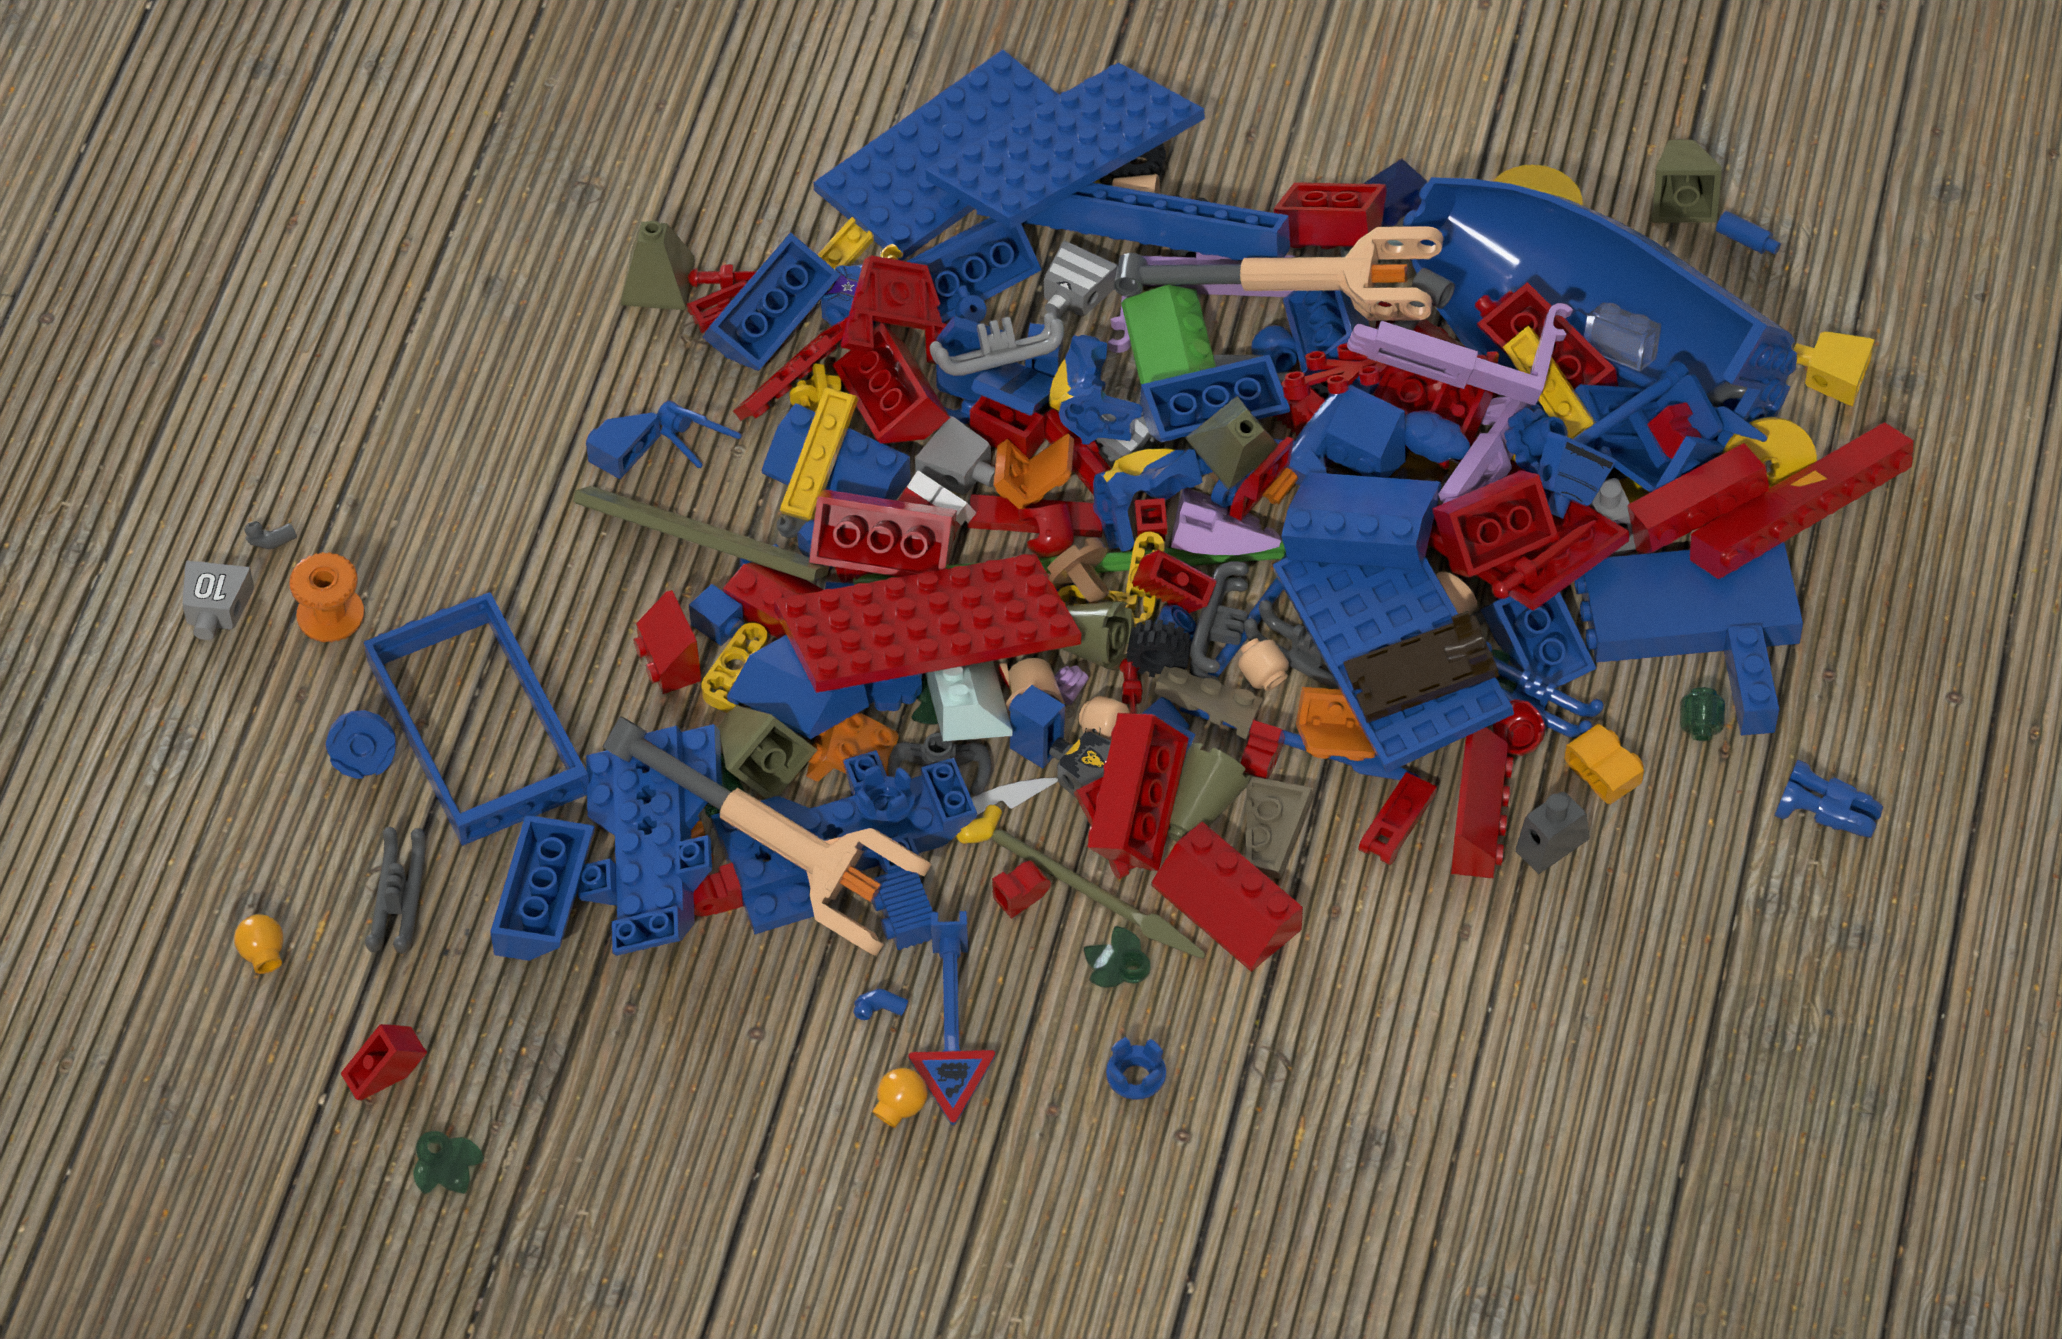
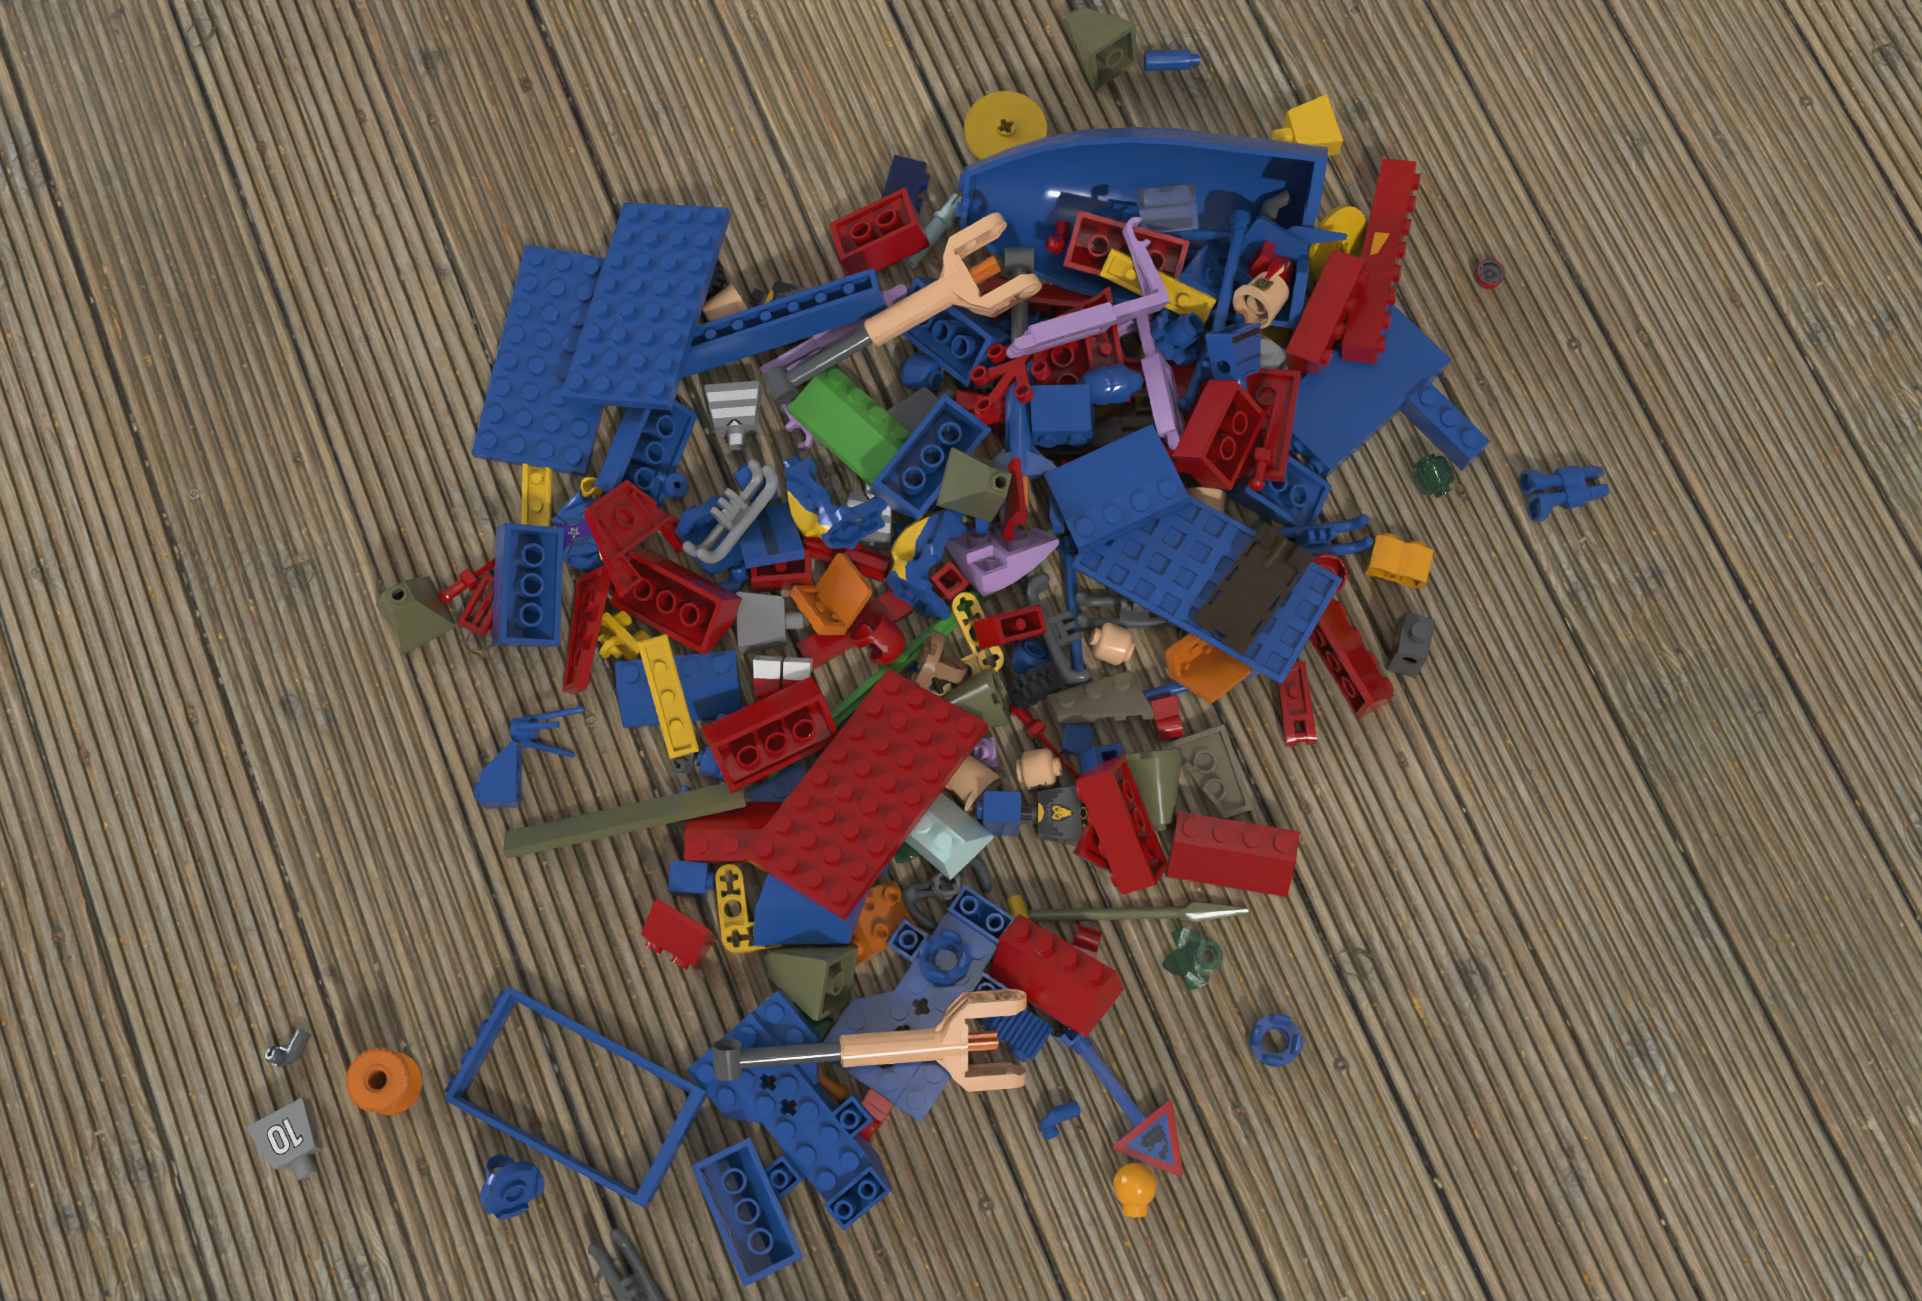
camera: 40 degrees left, 20 degrees up
(971, 867) = (1055, 975): none -> red slope
(1011, 794) = (1012, 872): white sticker -> none
(1641, 445) = (1263, 296): none -> light nougat hat
(1916, 587) = (1489, 274): none -> tile

